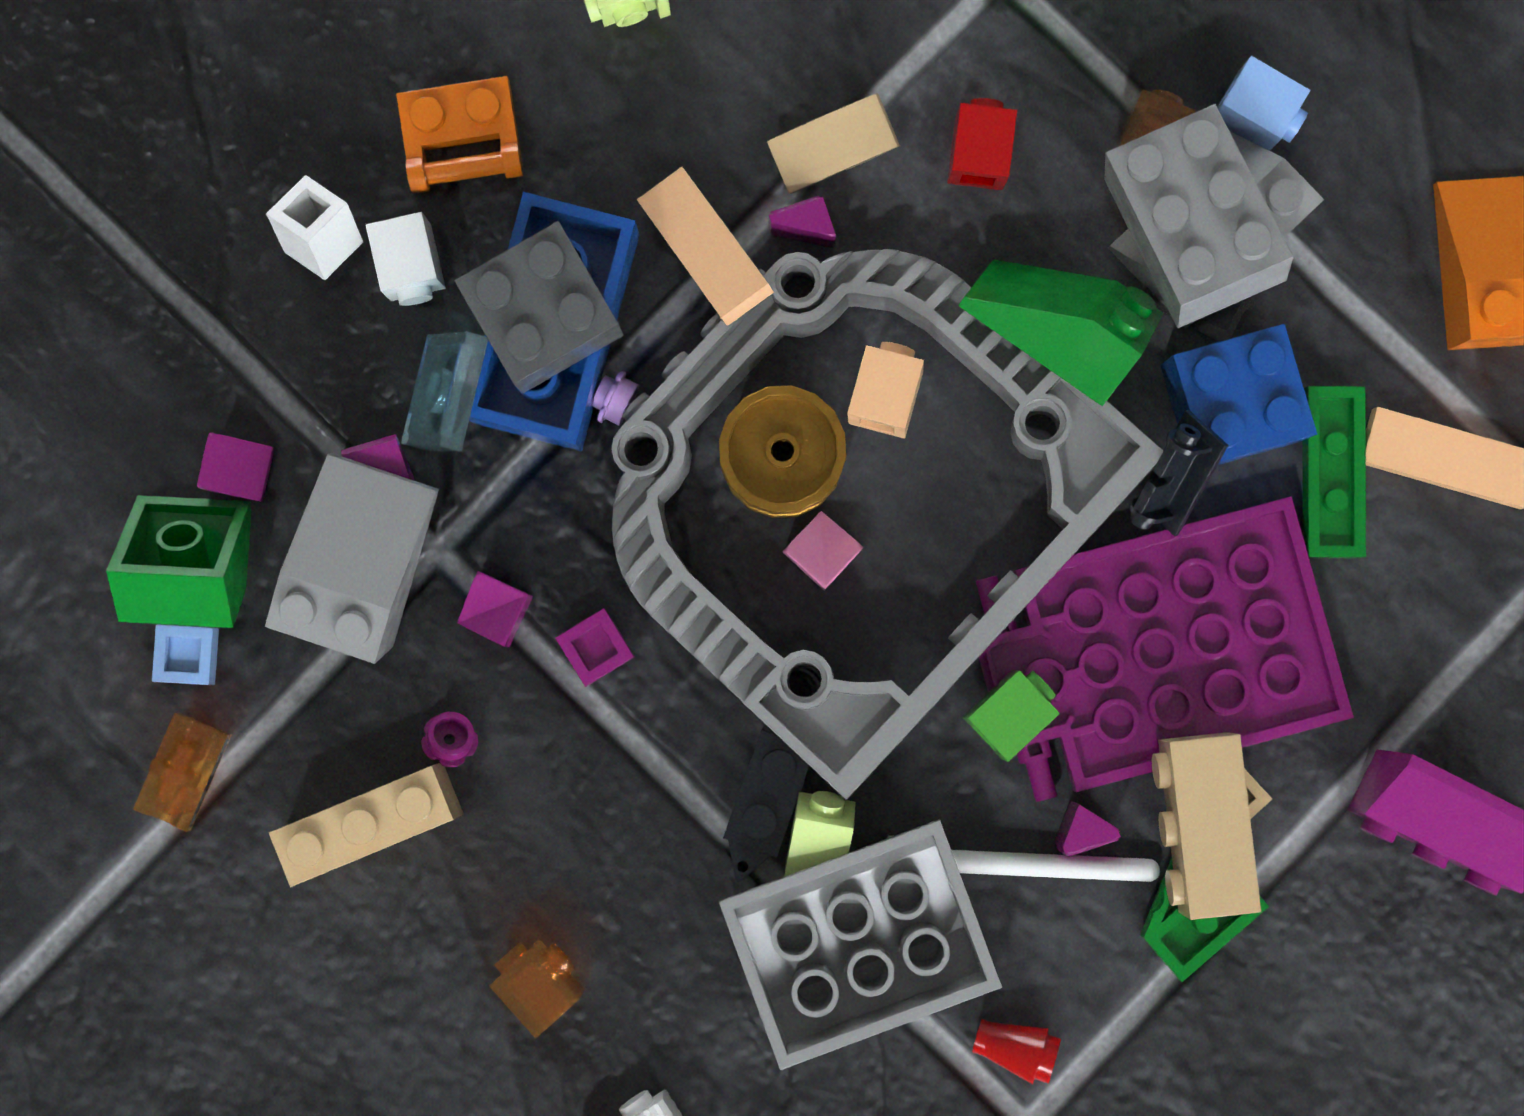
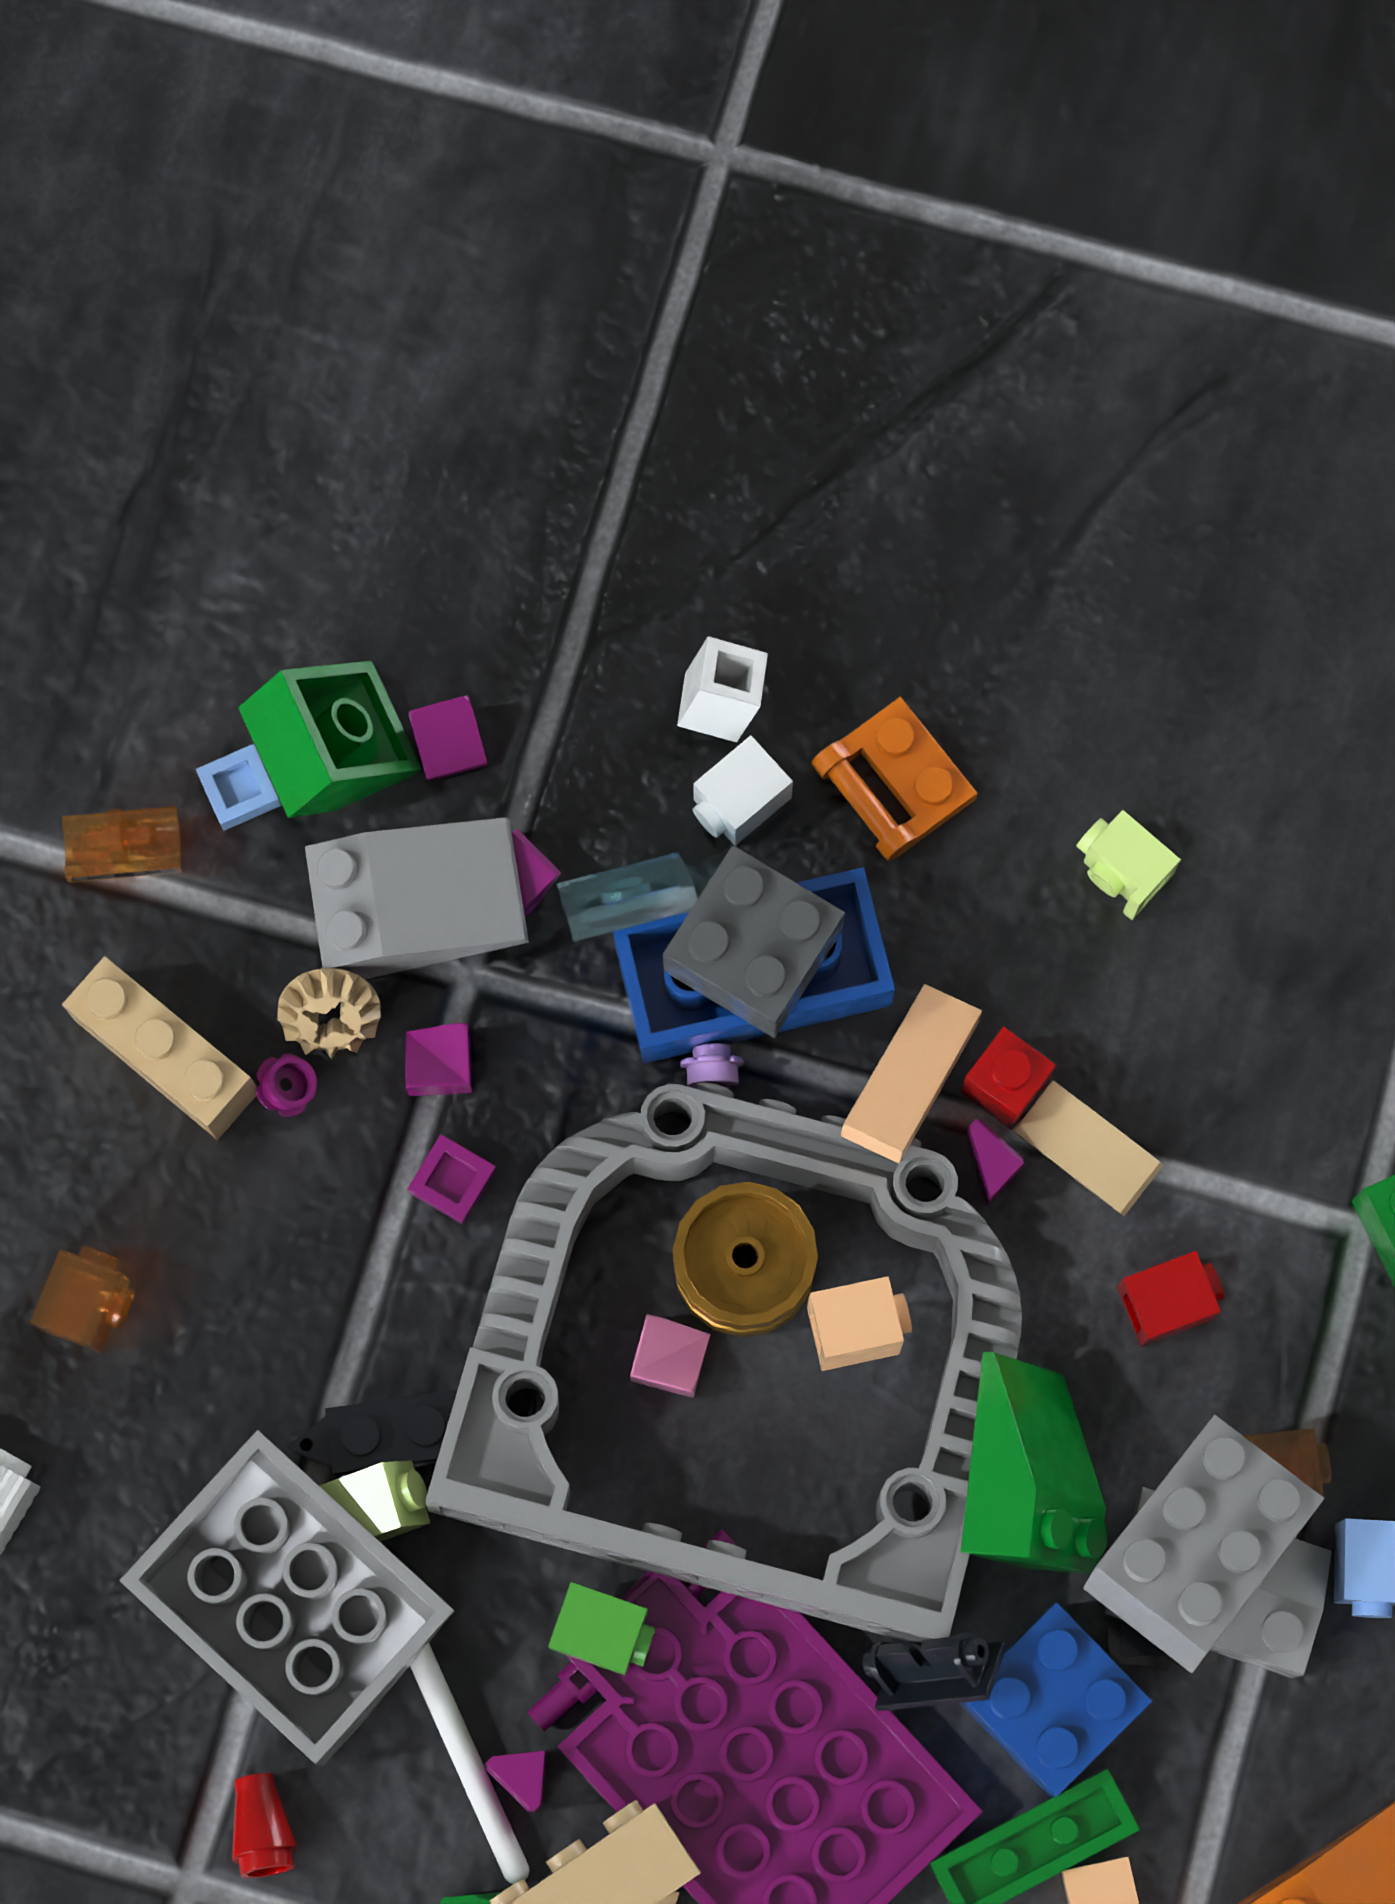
camera: 60 degrees right, 10 degrees down
(391, 675) = (318, 993): none -> tan gear
(747, 174) = (1007, 1078): none -> red brick

